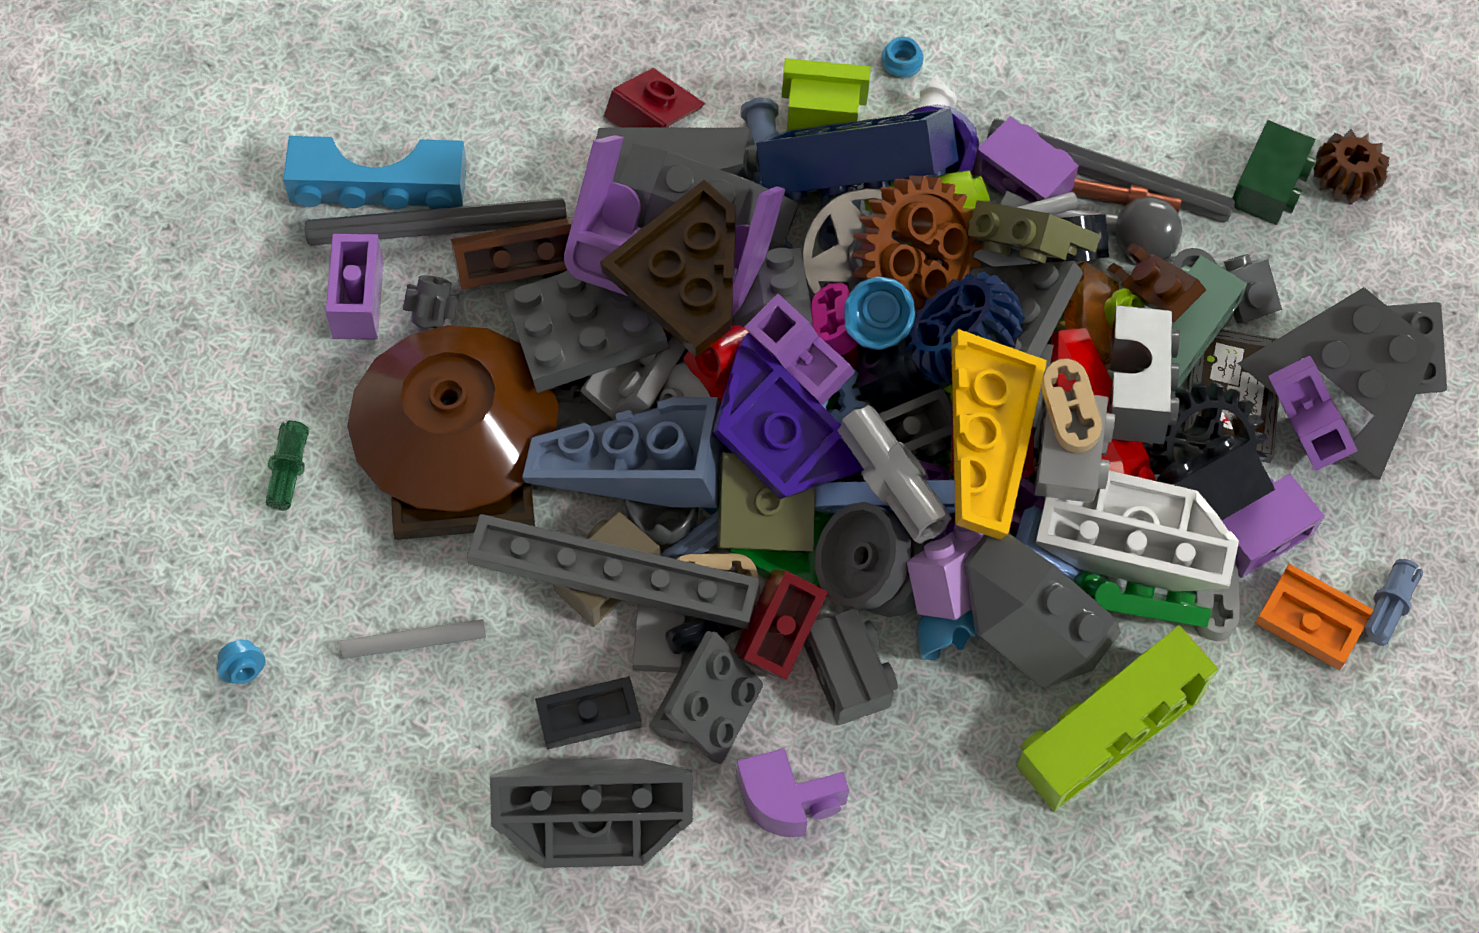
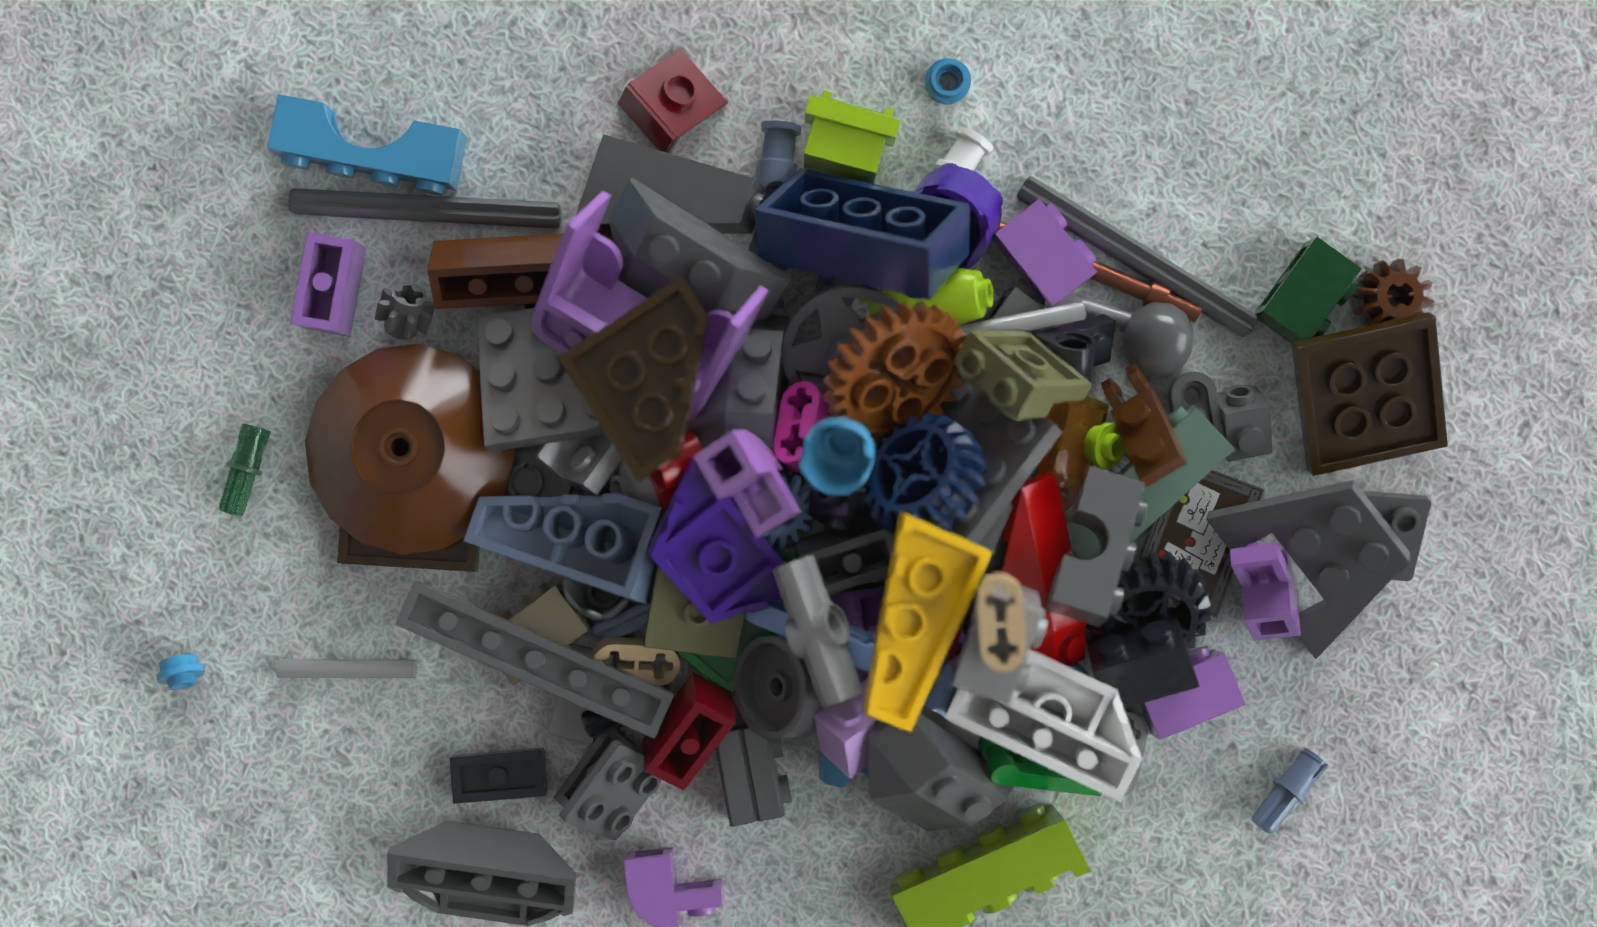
camera: 10 degrees right, 25 degrees up
(1314, 616) = (1209, 793): orange plate -> none
(1356, 235) = (1370, 393): none -> dark brown plate

